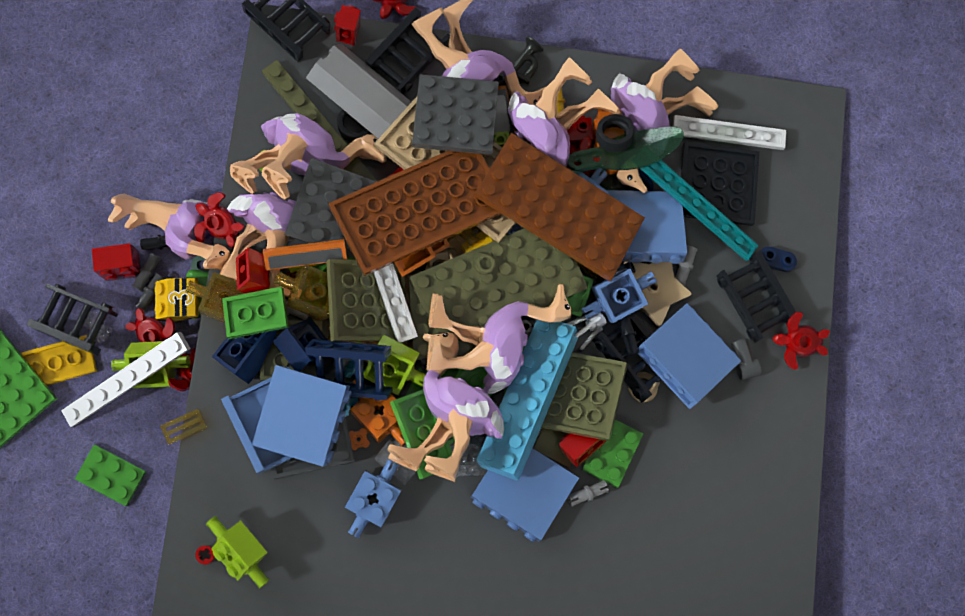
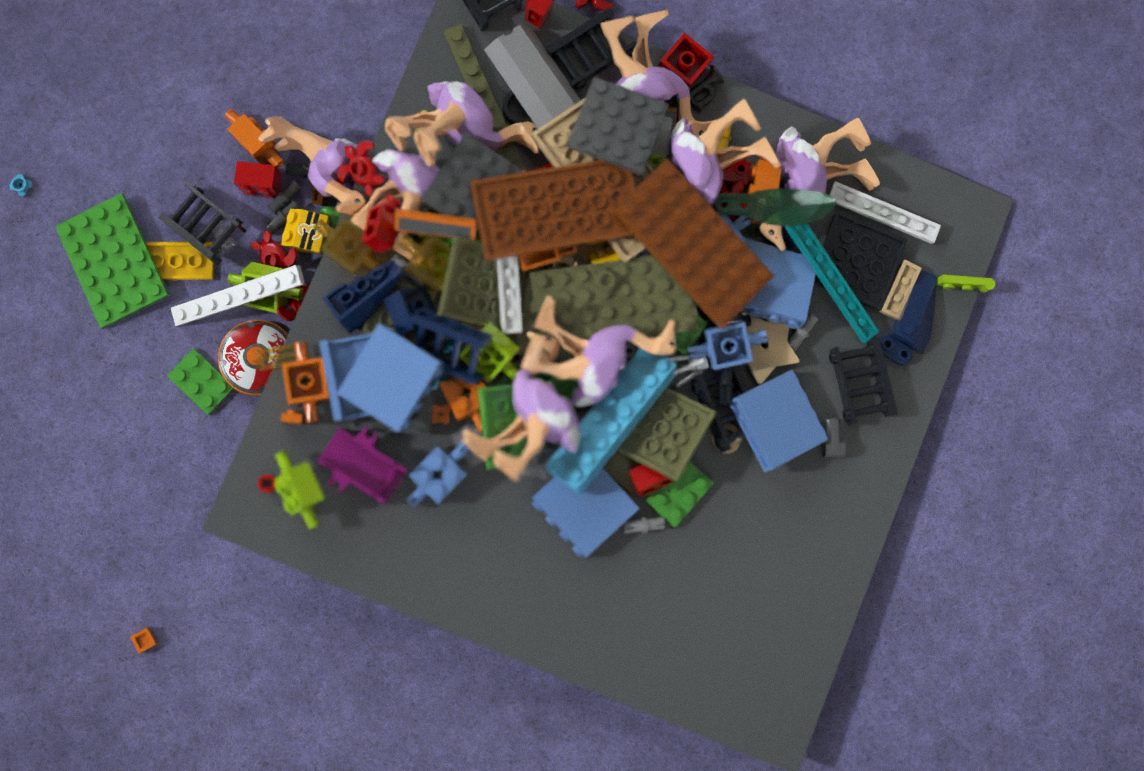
camera: 20 degrees right, 5 degrees up
(95, 221) = (247, 133): none -> orange brick
(144, 440) = (239, 358): none -> dish
(181, 264) = (318, 199): none -> reddish brown plate
(213, 482) = (292, 417): none -> orange plate
(214, 456) = (296, 373): none -> orange brick
(255, 312) = (373, 268): bright green plate -> none
(257, 245) = (392, 203): none -> red bush
(294, 510) = (358, 463): none -> magenta piece
(502, 37) = (687, 59): none -> red brick
(619, 121) = (771, 173): black tyre -> none
(766, 200) = (900, 289): none -> tan plate
(788, 221) = (916, 319): none -> dark blue wedge
(800, 340) = (892, 435): red animal -> none
(825, 177) = (966, 283): none -> lime plate

